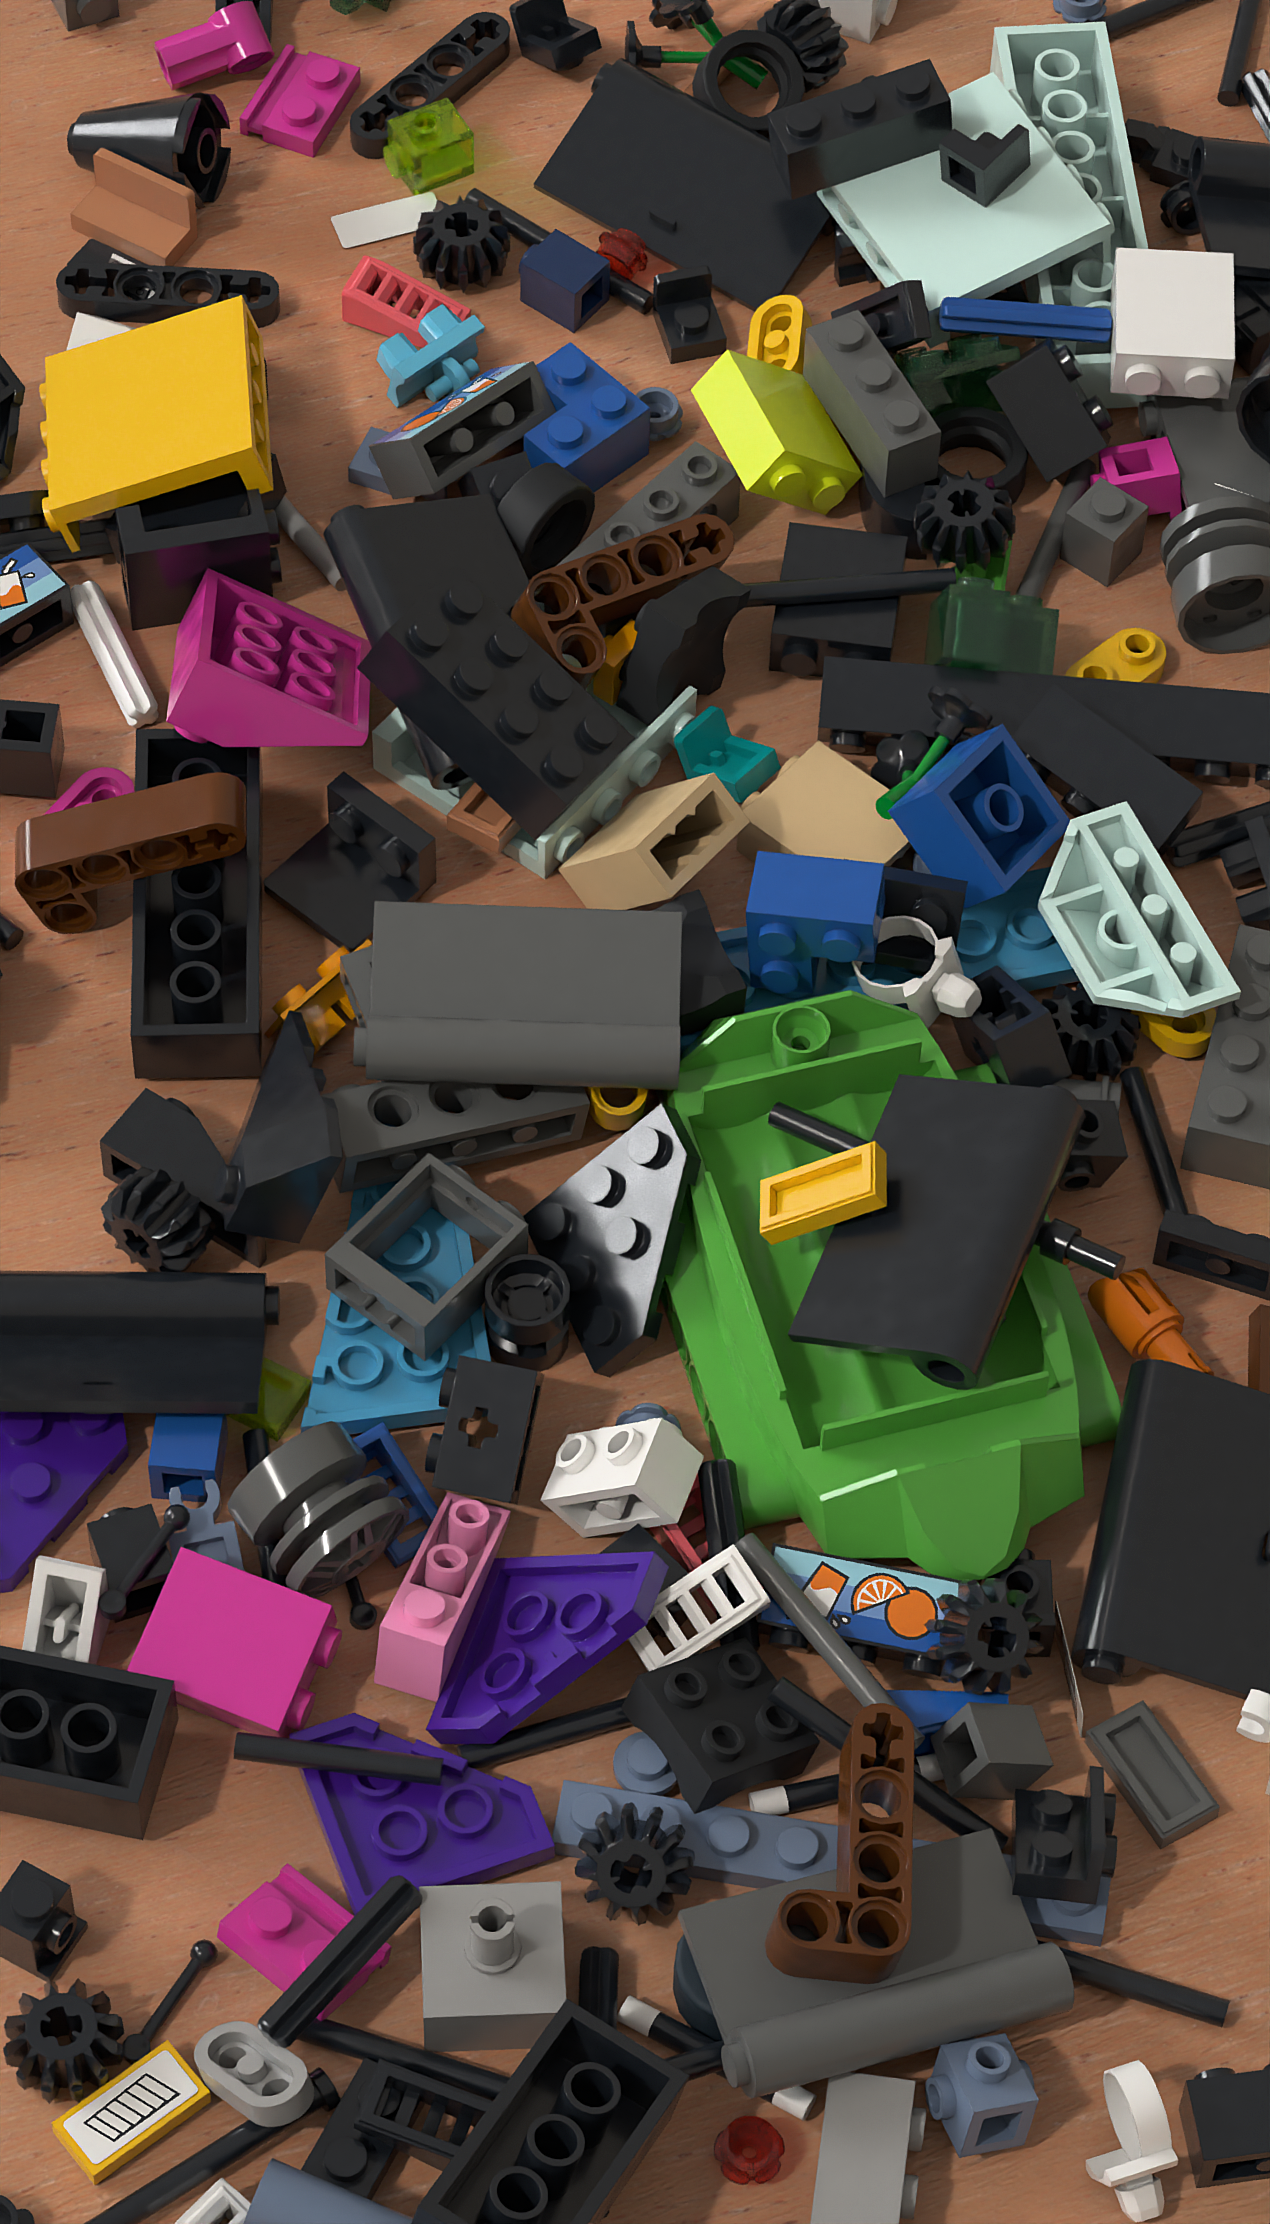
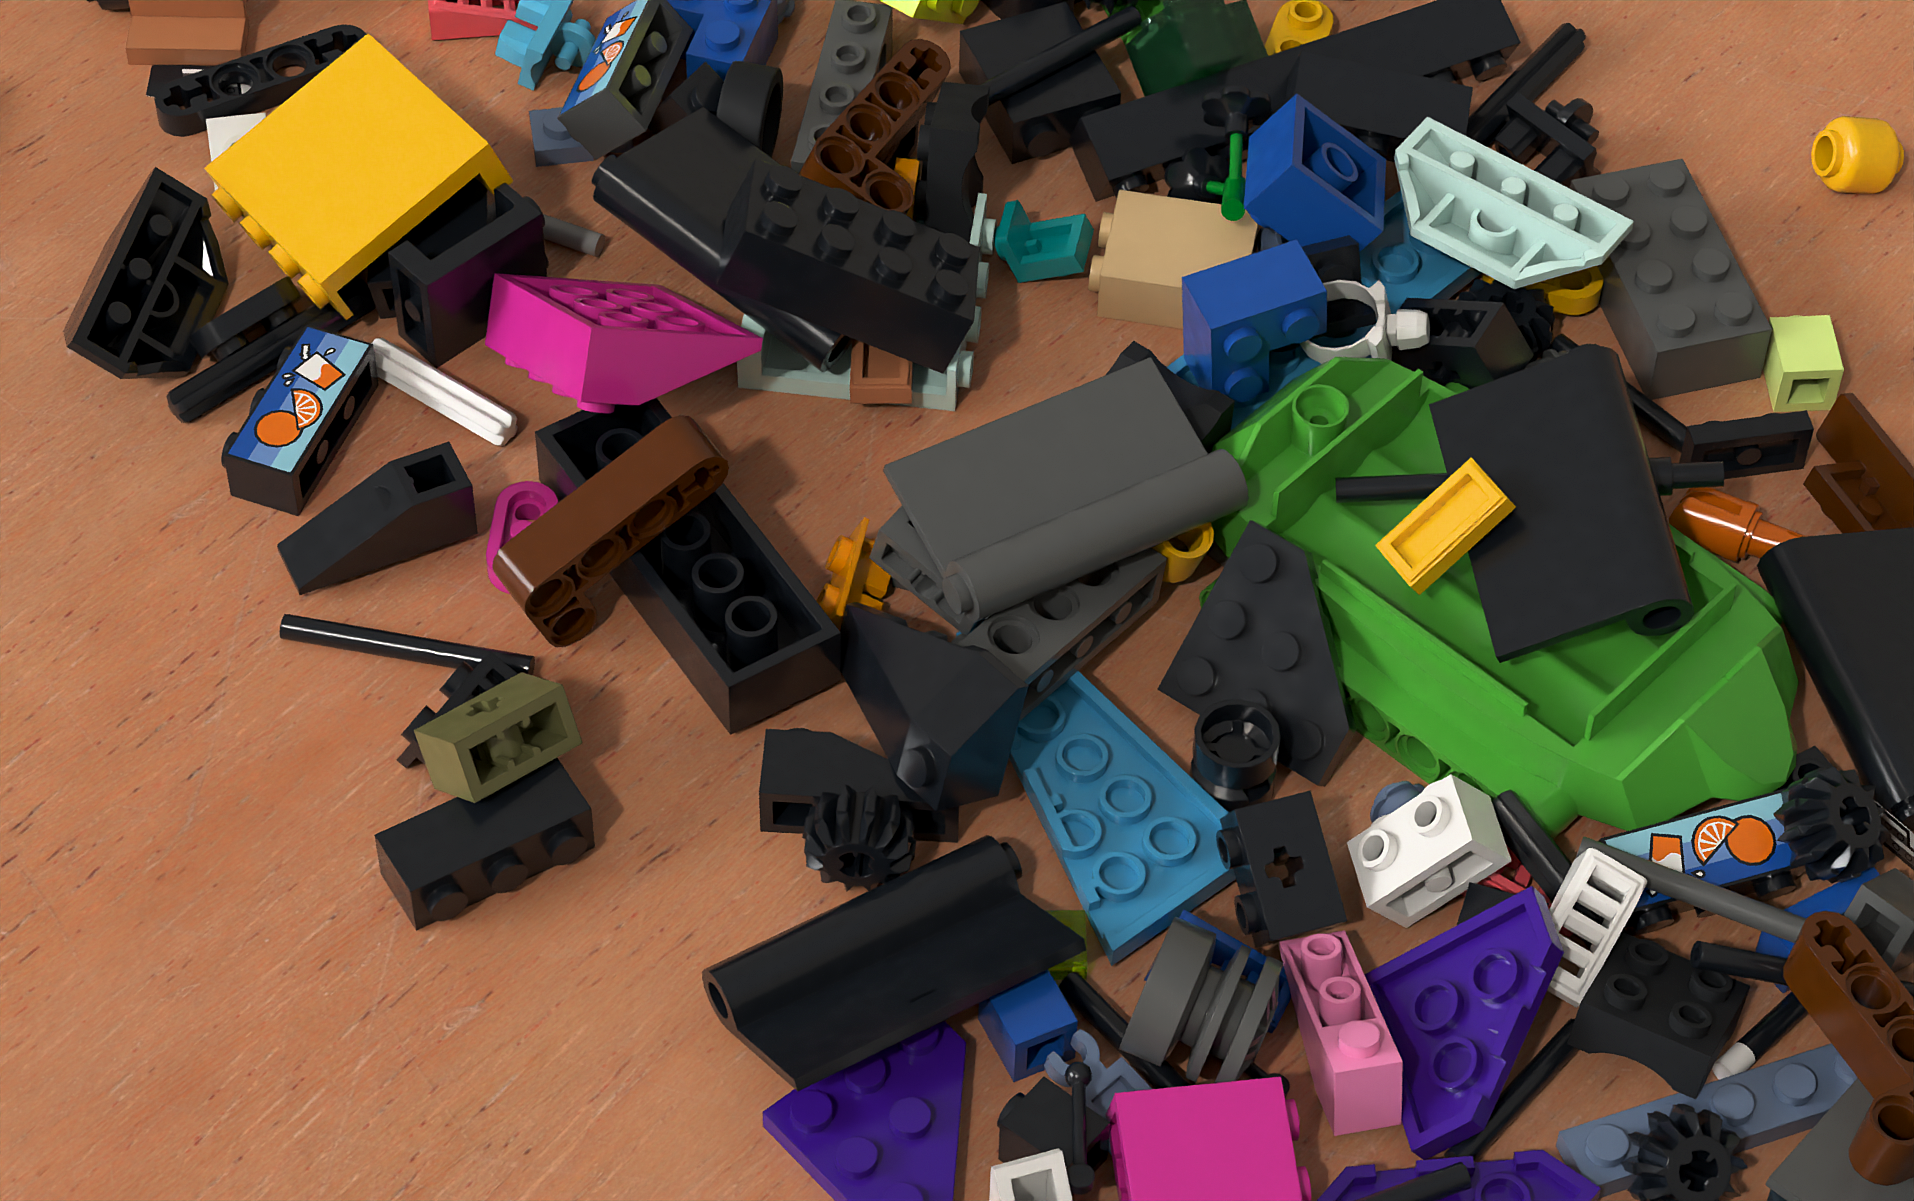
camera: 30 degrees left, 5 degrees down
(354, 860) = (800, 463): black bracket -> none
(389, 1301) = (1118, 800): dark grey window -> none
(642, 1766) = (1614, 1083): sand blue plate -> none
(654, 844) = (1056, 327): tan brick -> none

